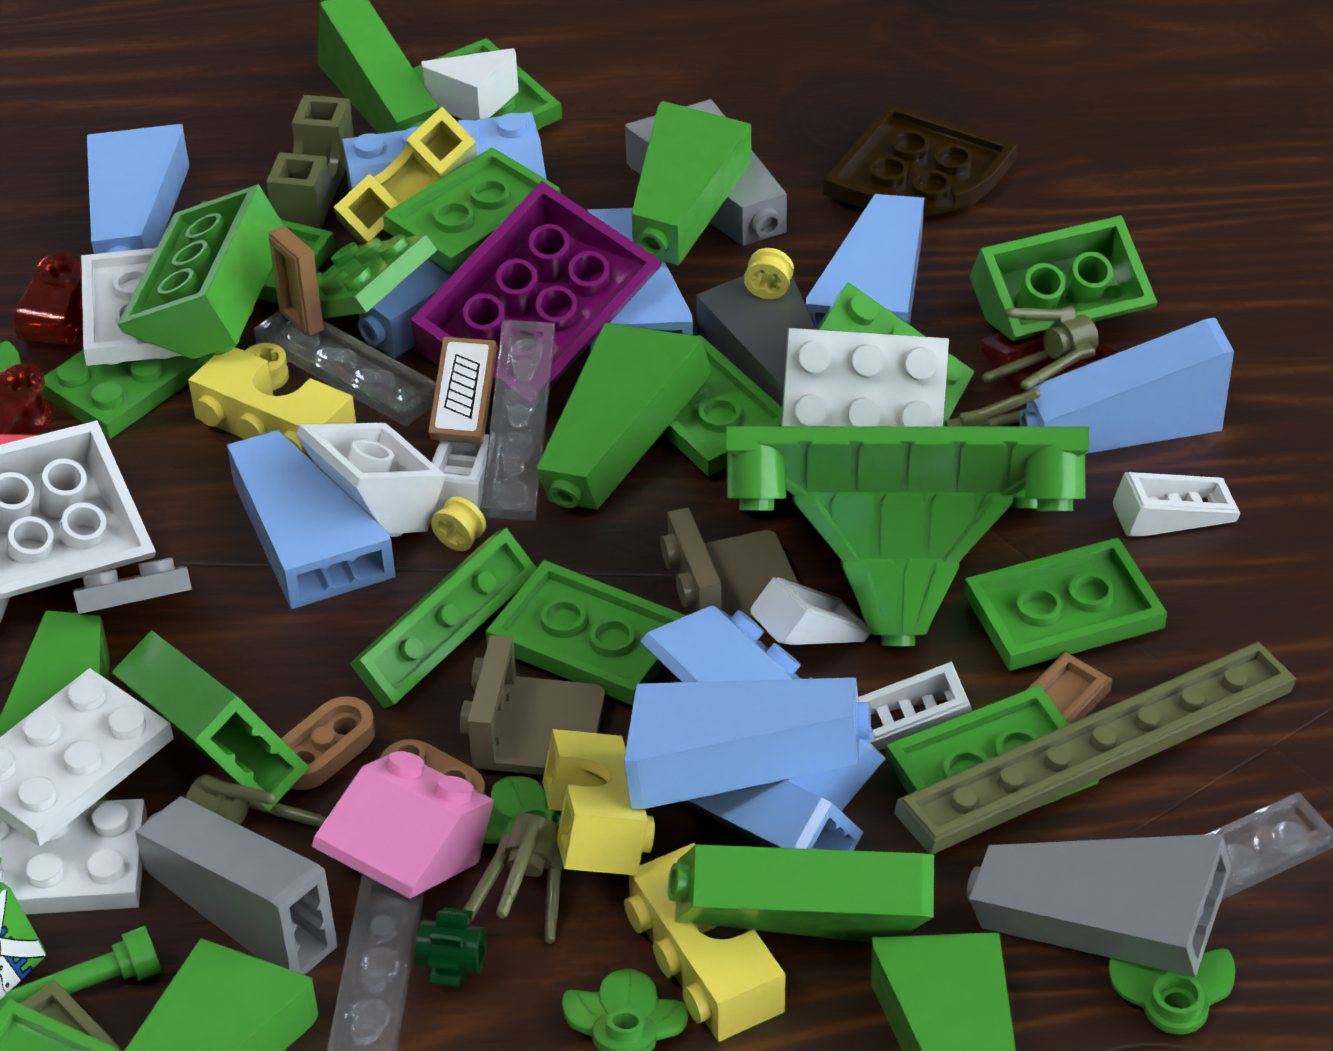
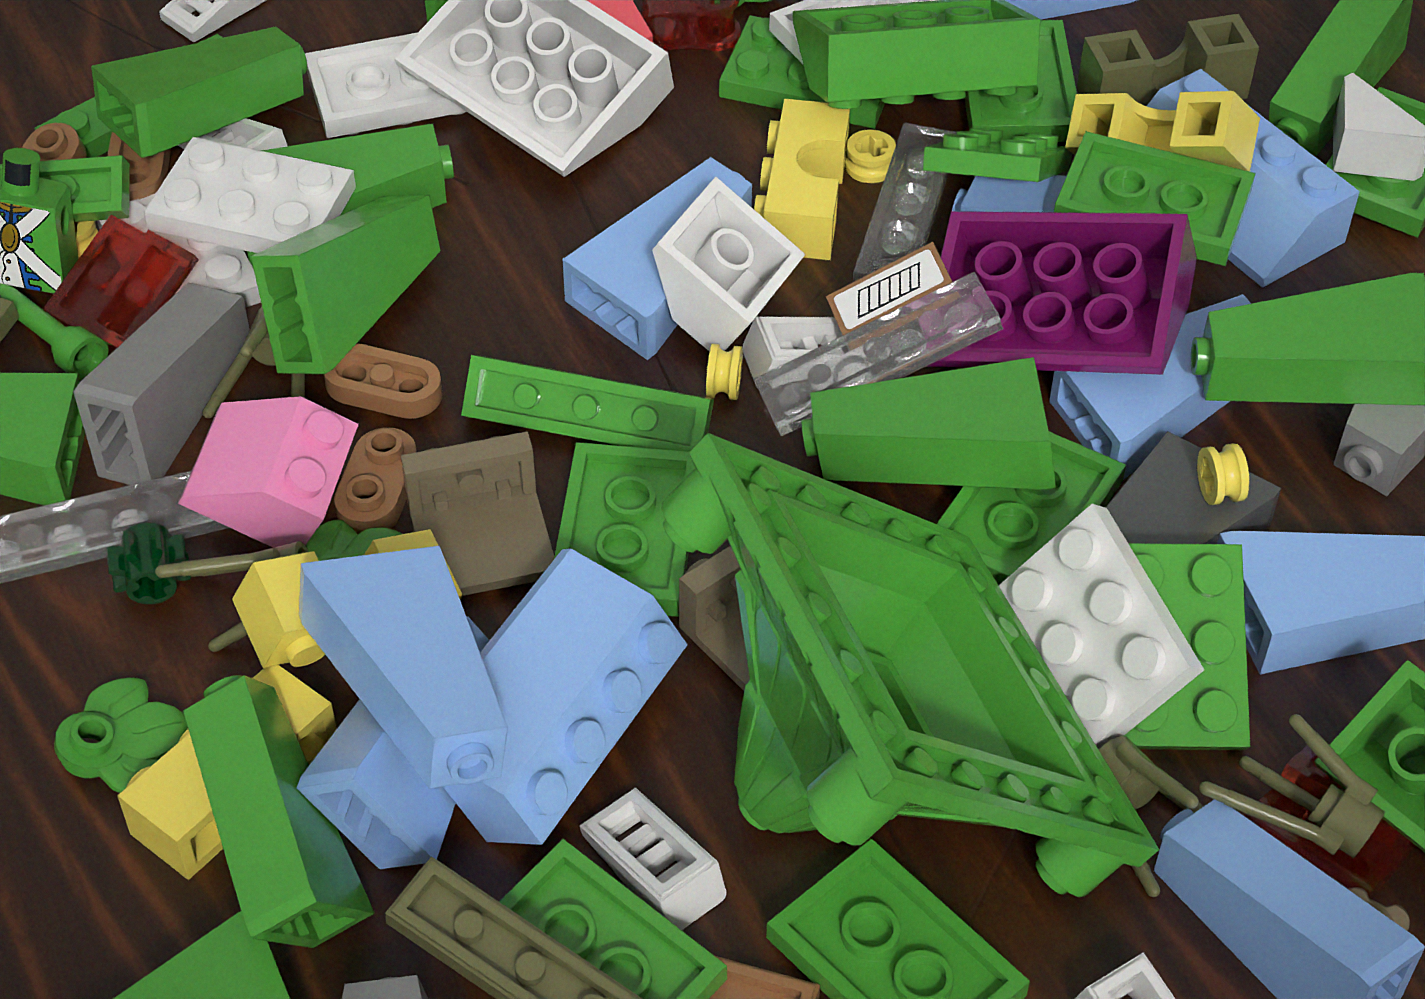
camera: 65 degrees right, 5 degrees up
(89, 890) = (120, 282): none -> clear red slope
(106, 590) = (495, 168): light grey plate -> none
(296, 281) = (941, 98): medium nougat tile -> none
(806, 616) = (694, 699): white slope -> none

